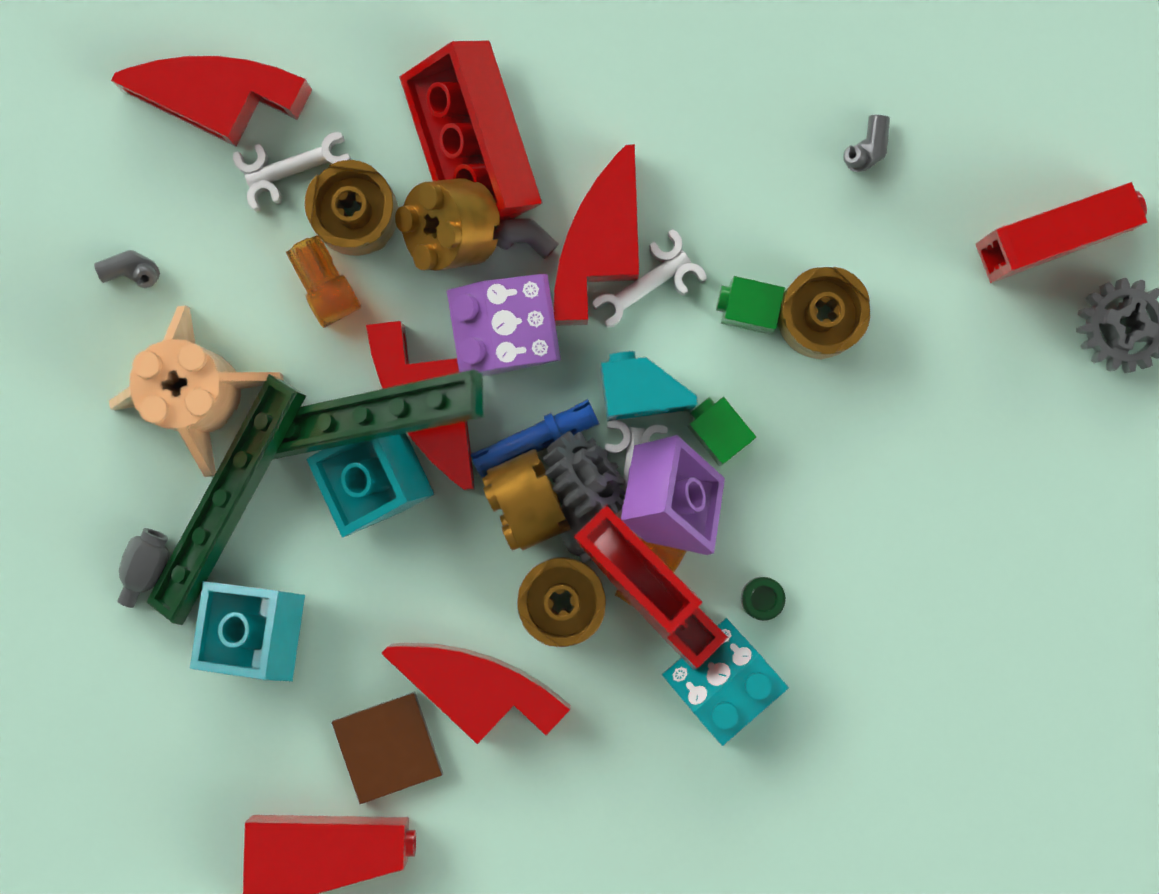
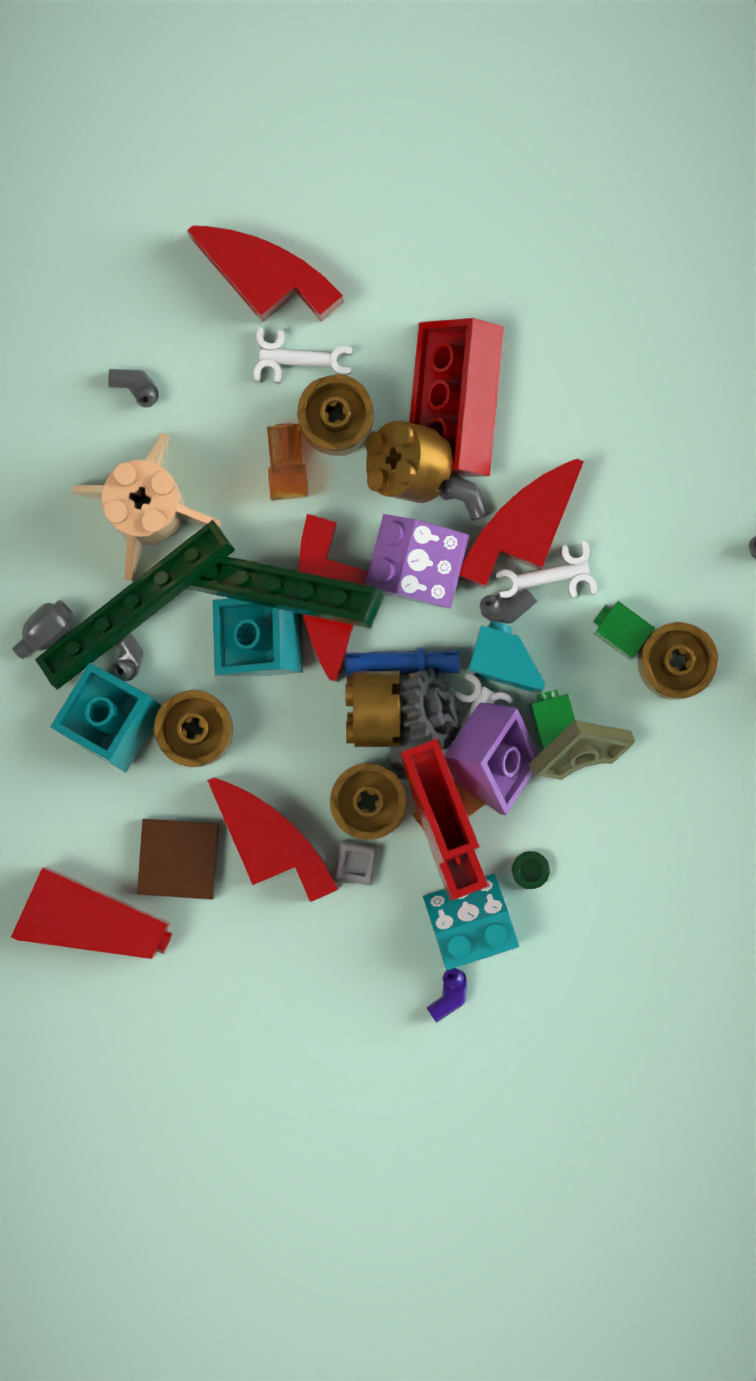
camera: 25 degrees right, 0 degrees up
(245, 559) = (129, 659): none -> dark grey arm
(327, 623) = (183, 709): none -> pearl gold brick
(576, 671) = (355, 863): none -> light grey tile
(620, 337) = (506, 610): none -> dark grey arm
(739, 768) = (452, 995): none -> dark purple arm
(760, 447) = (581, 746): none -> olive tile

